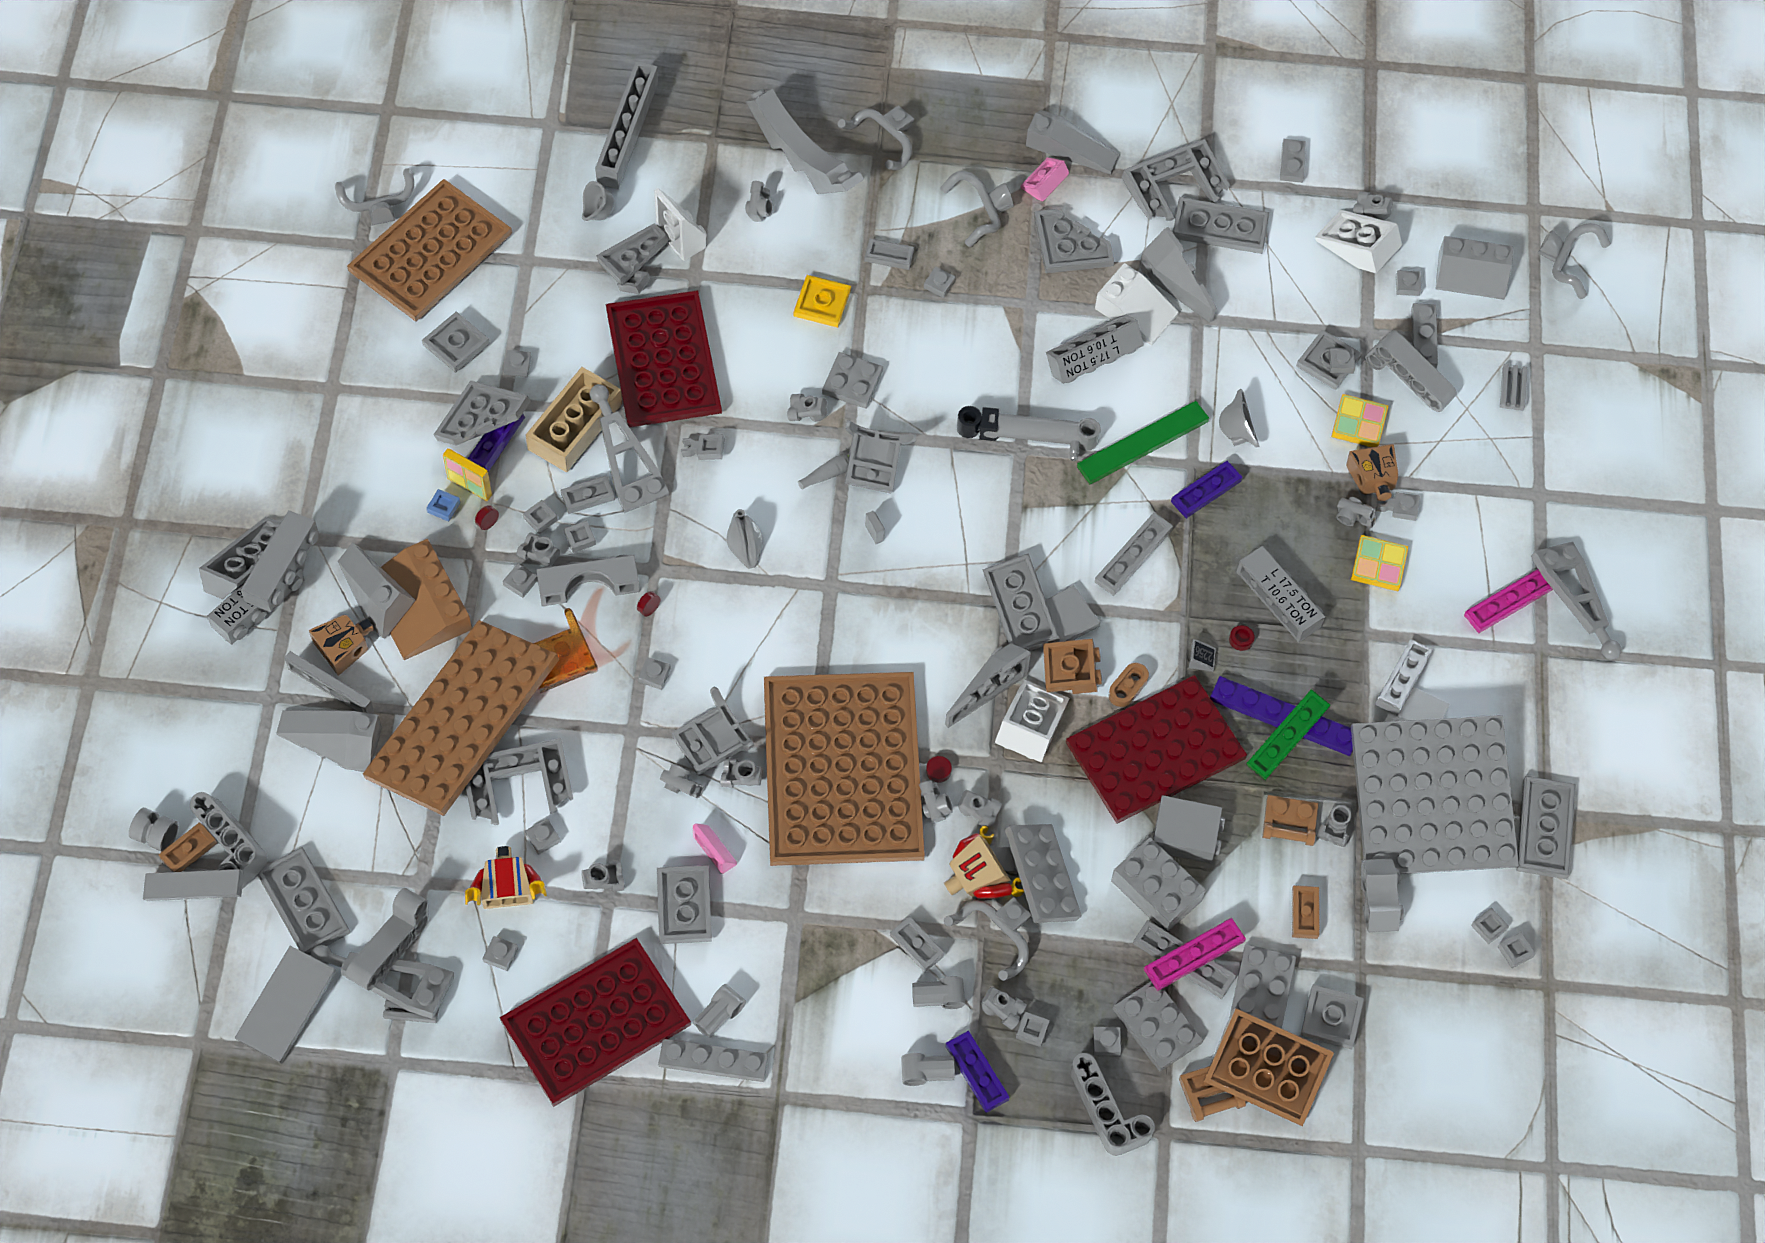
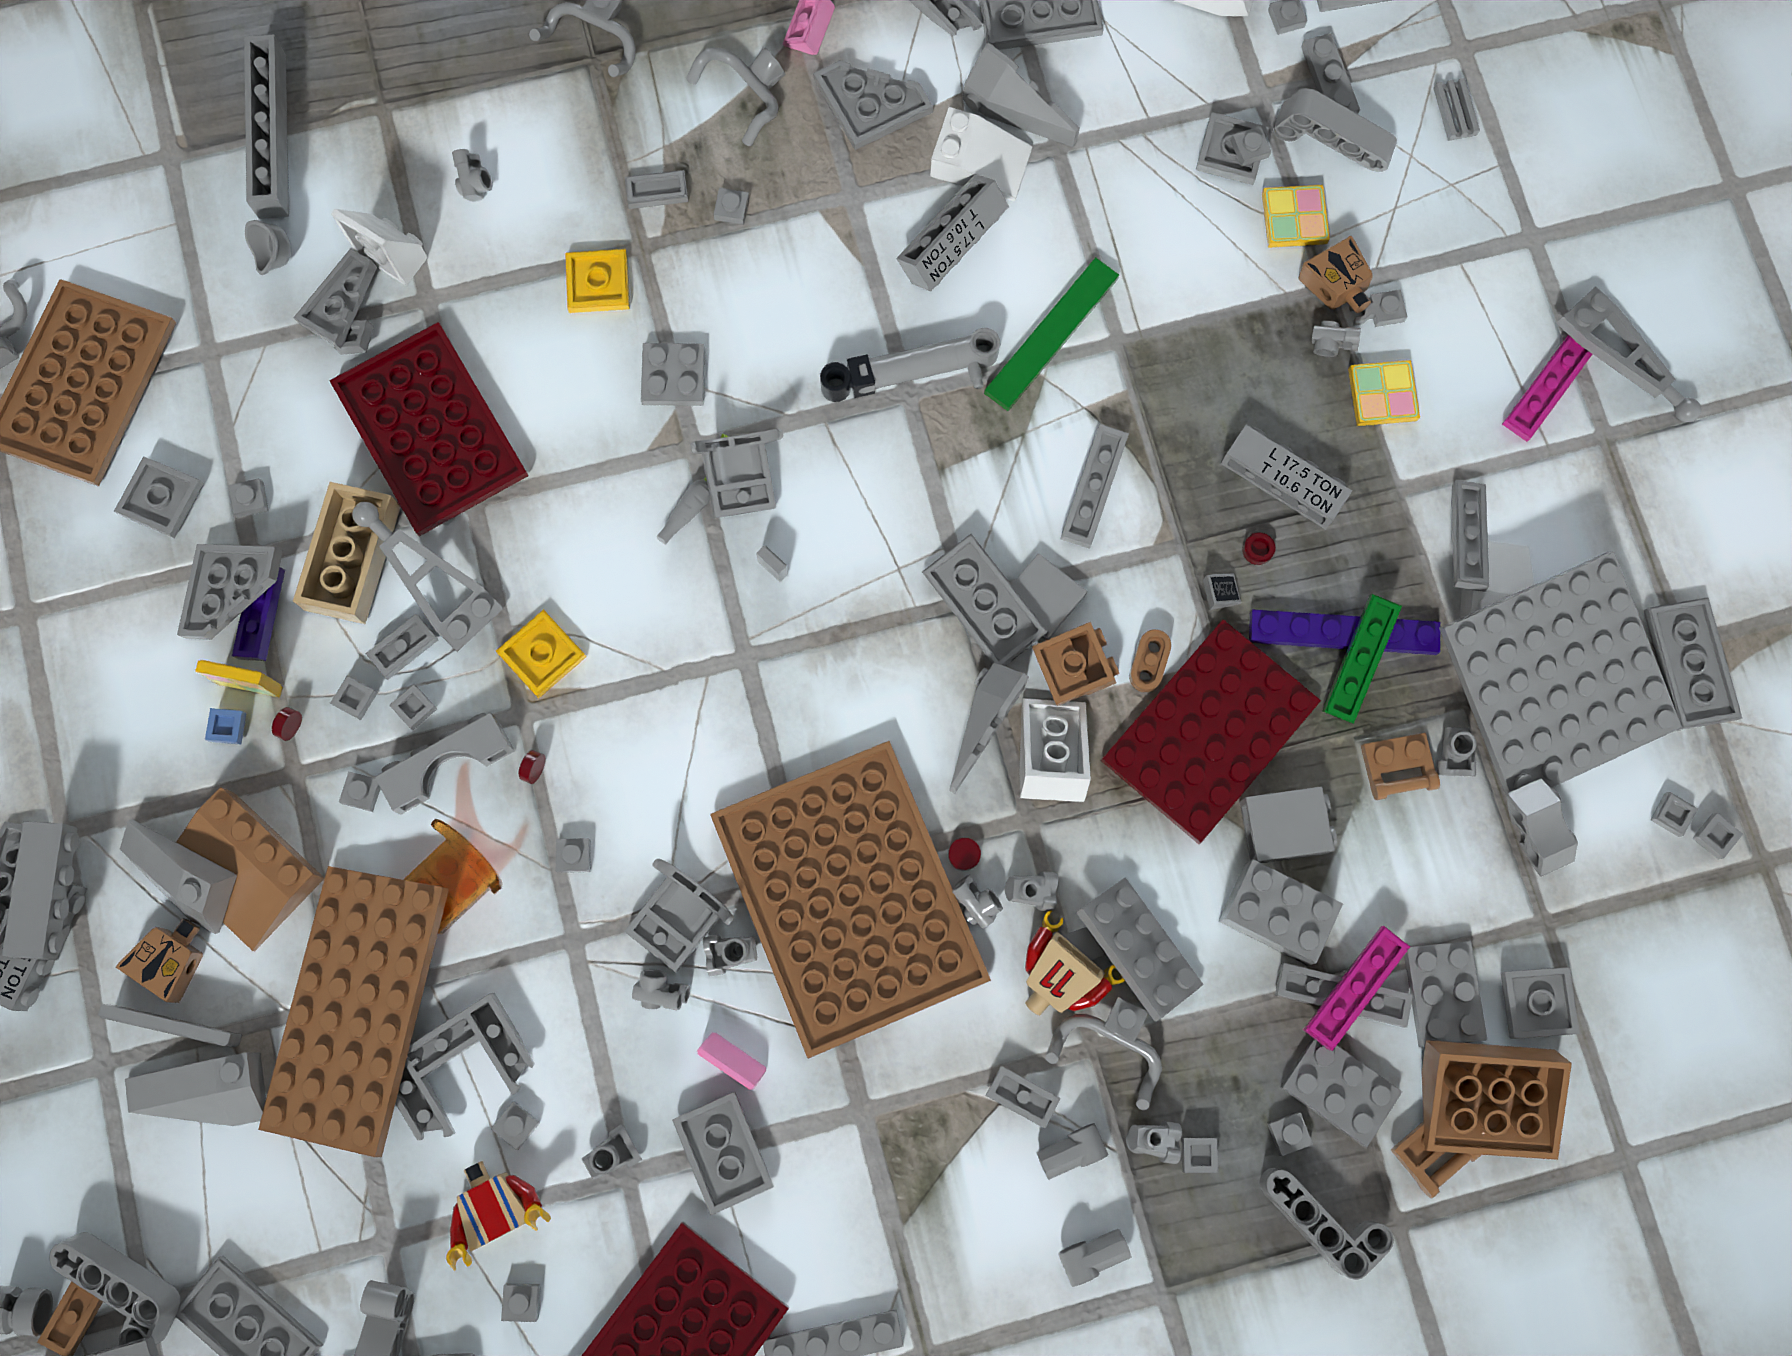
camera: 20 degrees left, 15 degrees up
(538, 549) = (367, 743): light grey plate -> none
(684, 533) = (541, 653): none -> yellow tile
(707, 448) = (528, 529): light grey plate -> none
(723, 1005) = (820, 1271): light grey piece -> none
(744, 539) = (618, 634): light grey hat -> none
(781, 131) = (537, 107): light grey arch -> none
(806, 407) = (630, 433): light grey plate -> none
(977, 1071) = (1154, 1236): dark purple plate -> none
(1206, 489) = (1149, 370): dark purple plate -> none
(1237, 423) = (1154, 270): light grey hat -> none
(1305, 912) = (1461, 879): medium nougat plate -> none

